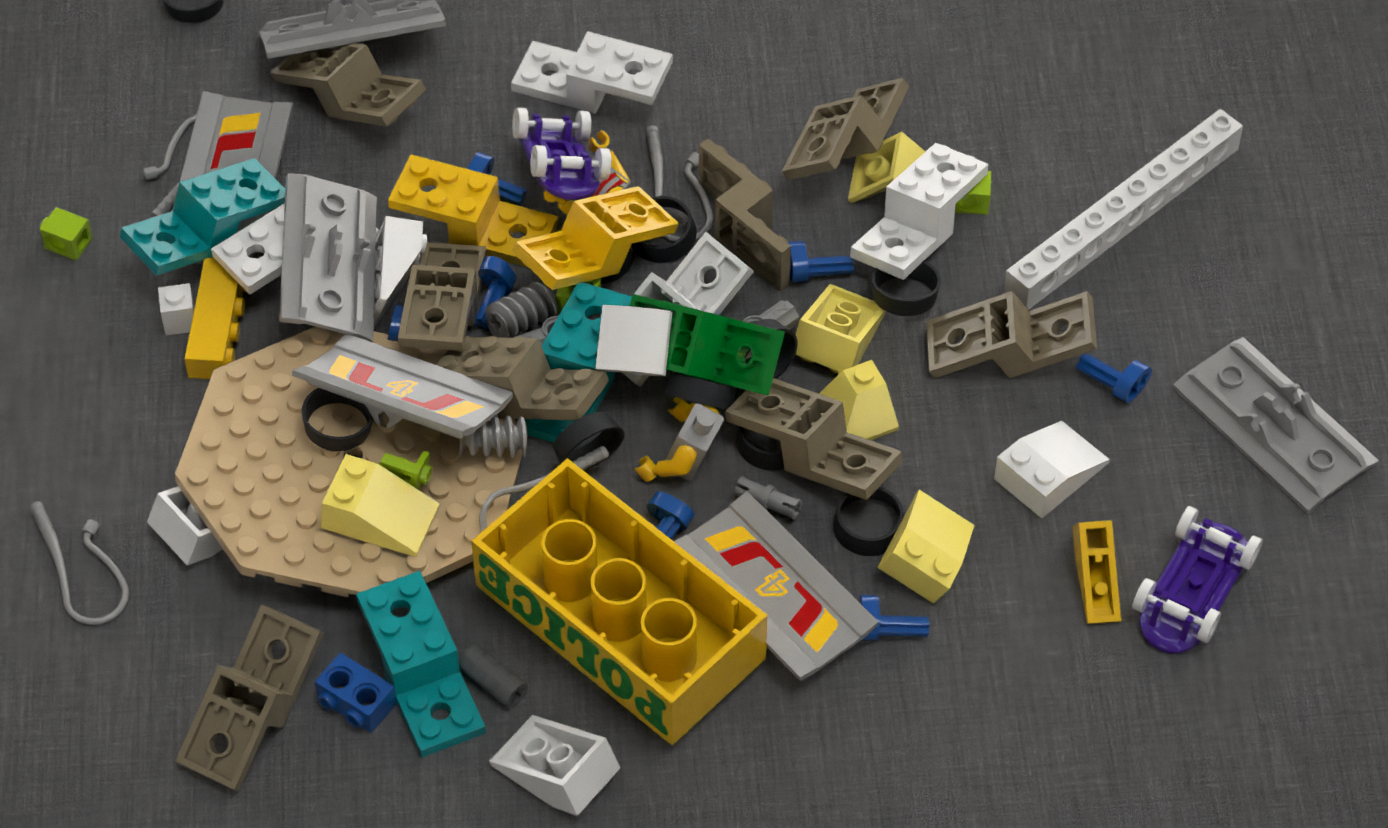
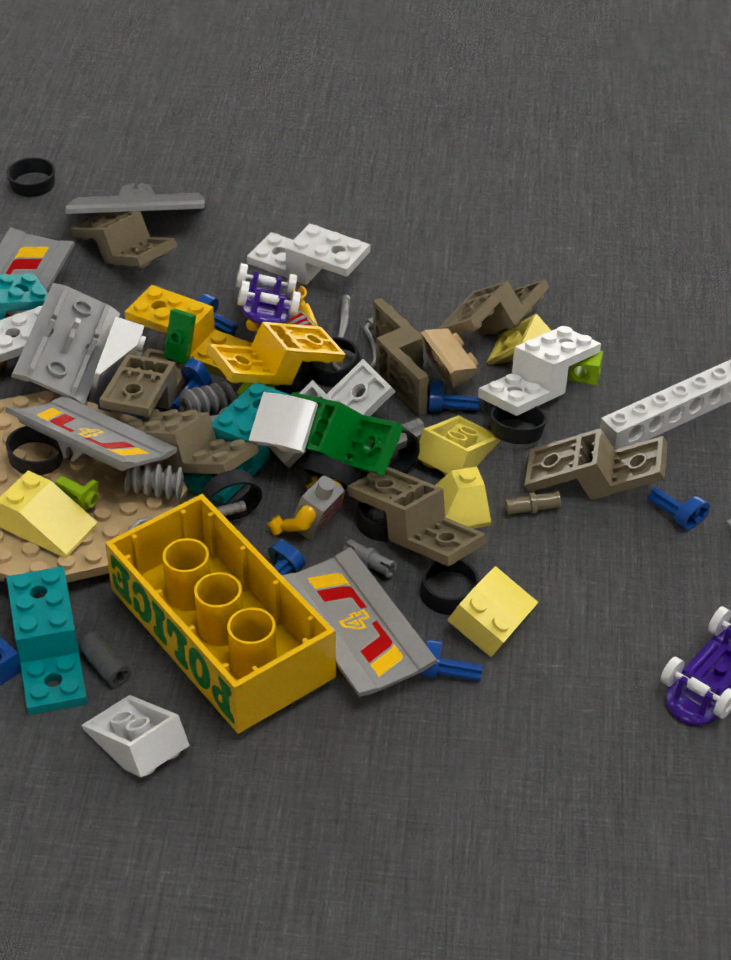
camera: 10 degrees right, 10 degrees down
(468, 227) = (179, 336): none -> green plate
(808, 209) = (449, 357): none -> tan slope
(943, 394) = (533, 503): none -> dark tan pin
(1048, 467) = (608, 566): white slope -> none
(1097, 570) = (636, 648): yellow slope -> none

